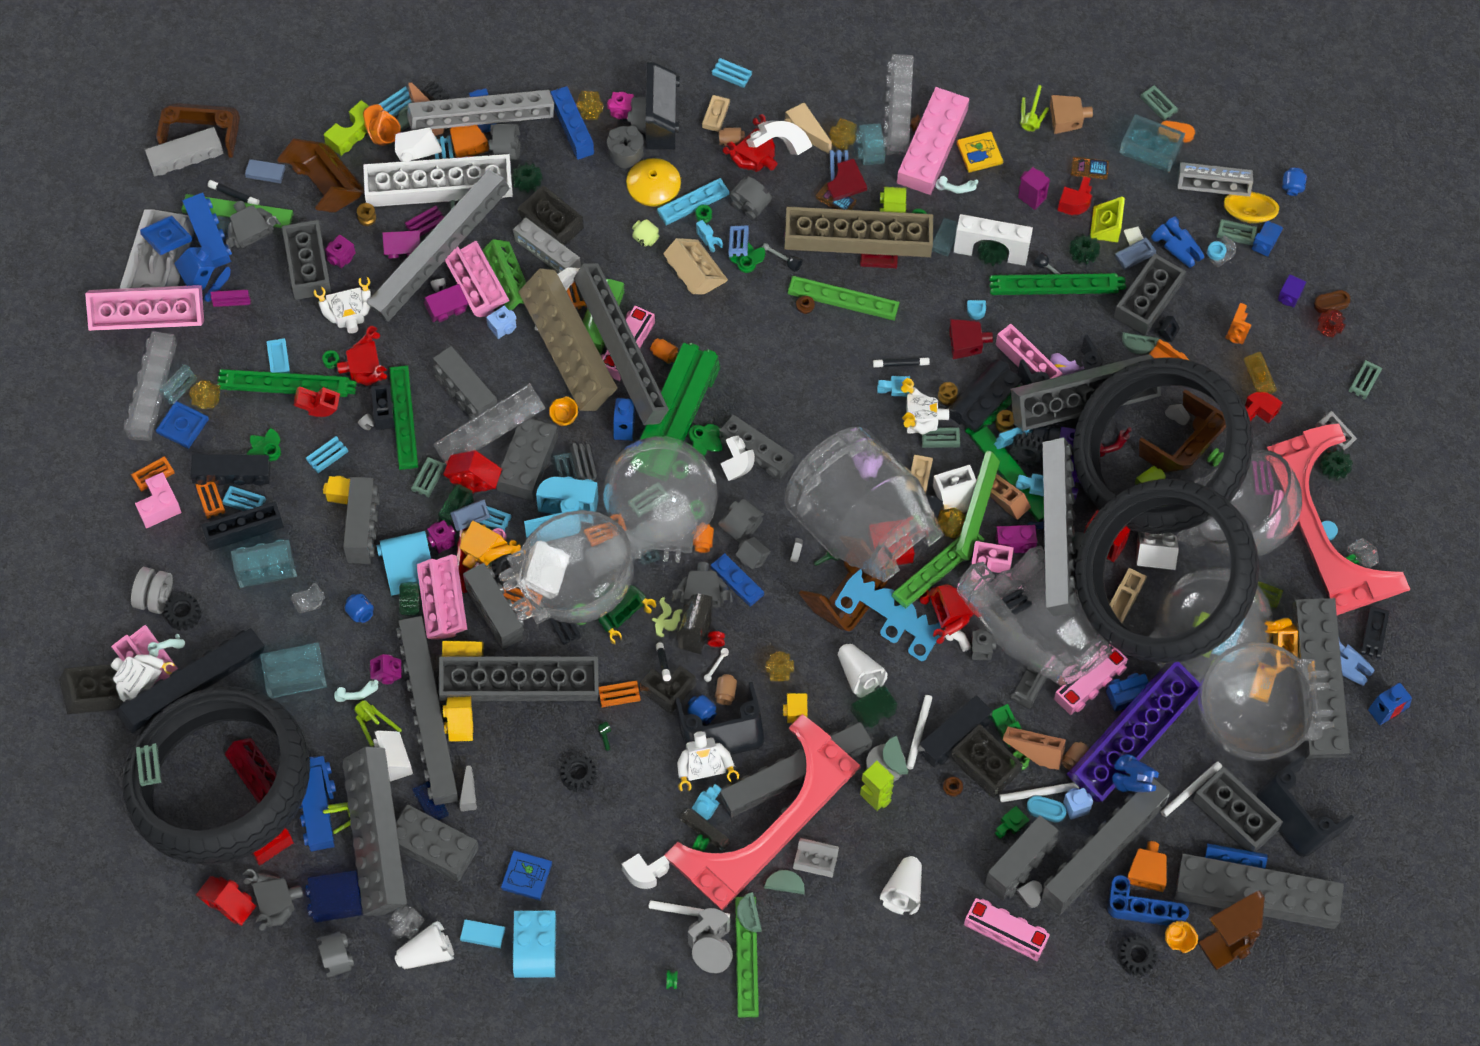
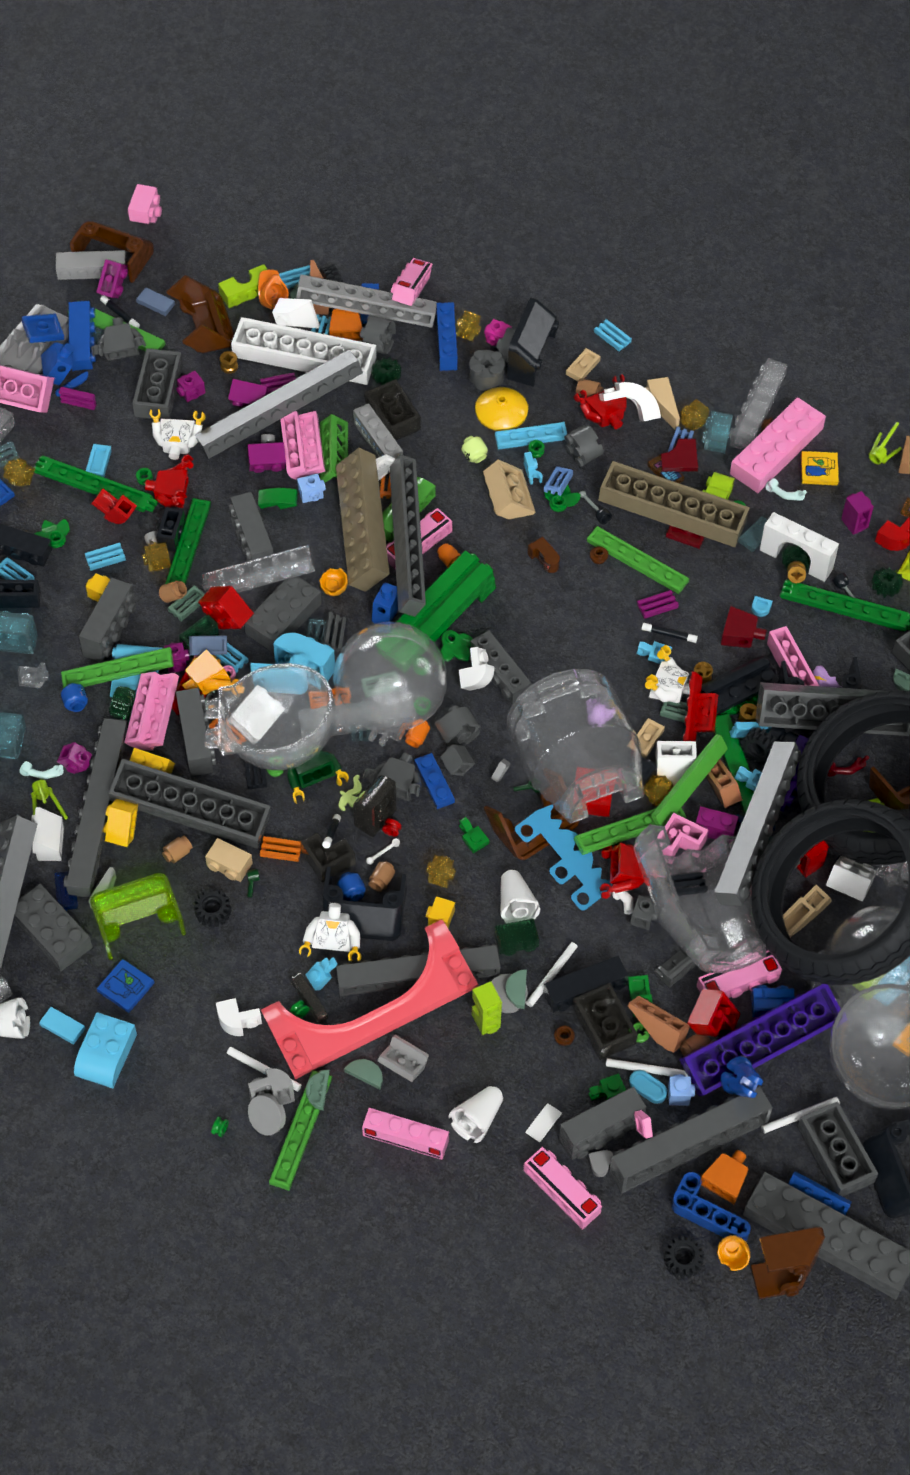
camera: 20 degrees right, 5 degrees down
(215, 72) = (144, 205): none -> bright pink brick
(215, 161) = (112, 279): none -> magenta brick
(379, 439) = (156, 557): none -> clear yellow brick
(391, 565) = (119, 668): none -> bright green tile
(410, 470) = (172, 591): none -> medium nougat brick
(473, 340) = (278, 497): none -> green slope
(505, 790) = (132, 902): none -> clear neon green windscreen
(517, 76) = (411, 281): none -> bright pink brick
(521, 727) = (177, 849): none -> medium nougat brick
(575, 721) = (228, 860): none -> tan brick
(755, 320) = (545, 554): none -> reddish brown leg
(796, 623) = (473, 838): none -> green plate
(846, 927) = (405, 1133): none -> bright pink brick
(895, 332) = (655, 602): none -> magenta tile
(963, 432) = (701, 709): none -> red bracket
(964, 874) = (543, 1122): none -> white sticker
(994, 264) = (796, 567): none -> pearl gold wheel
(1061, 847) = (643, 1124): none -> bright pink tile
(1082, 722) = (713, 1013): none -> red brick

